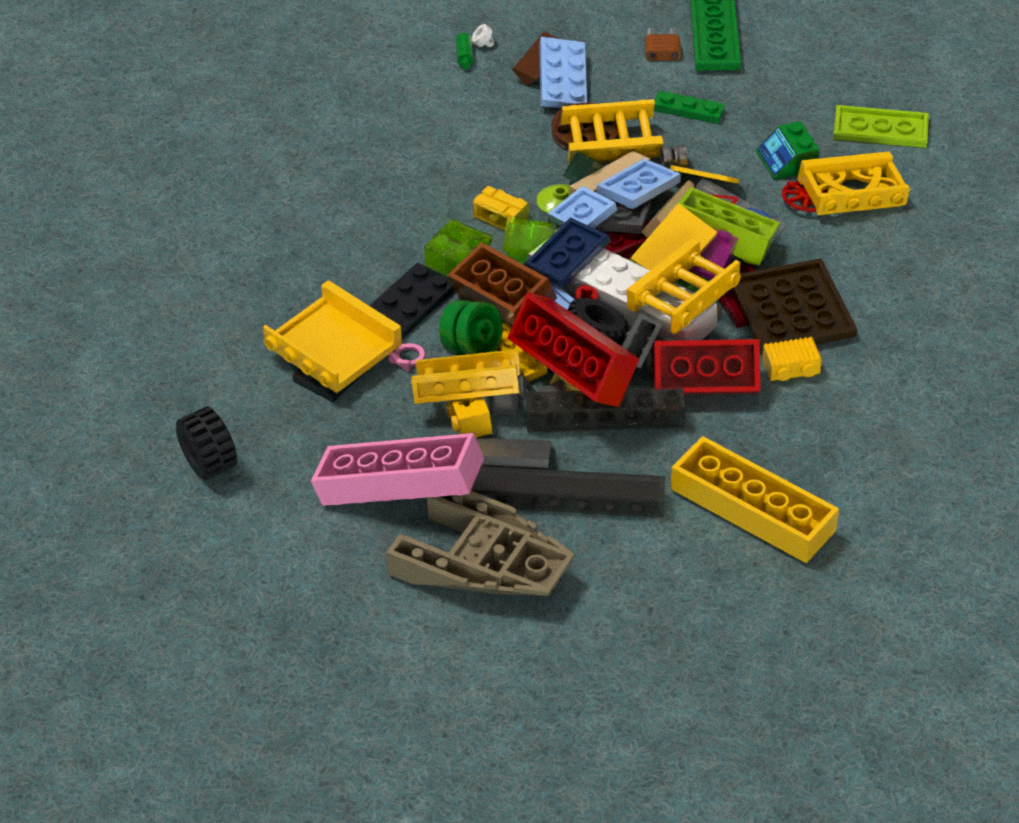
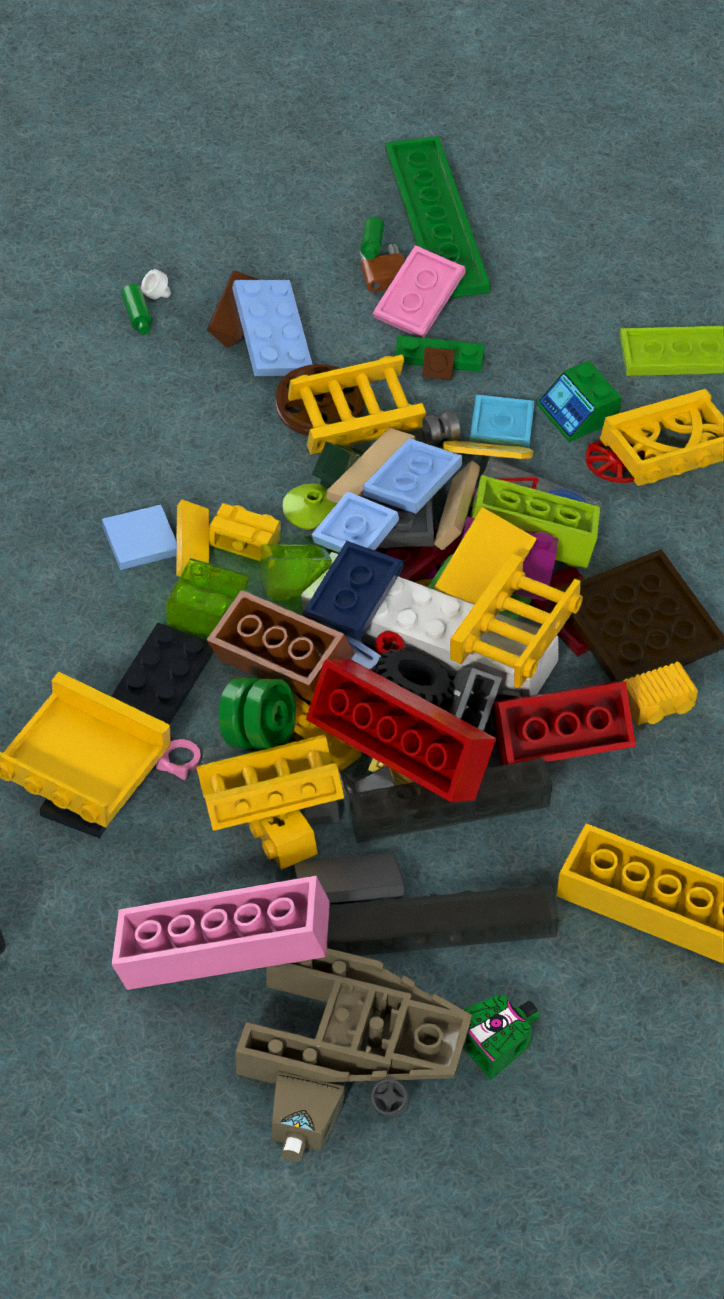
camera: 15 degrees left, 5 degrees up
(422, 204) = (140, 537): none -> light blue tile
(430, 606) = (304, 1113): none -> dark tan torso
(461, 204) = (191, 534): none -> yellow tile
(493, 601) = (385, 1094): none -> dark grey wheel
(595, 574) = (498, 1033): none -> green torso
(657, 20) = (372, 237): none -> green cylinder
(683, 61) = (419, 292): none -> bright pink tile
(684, 112) = (438, 363): none -> reddish brown plate
(724, 158) = (502, 421): none -> medium azure tile

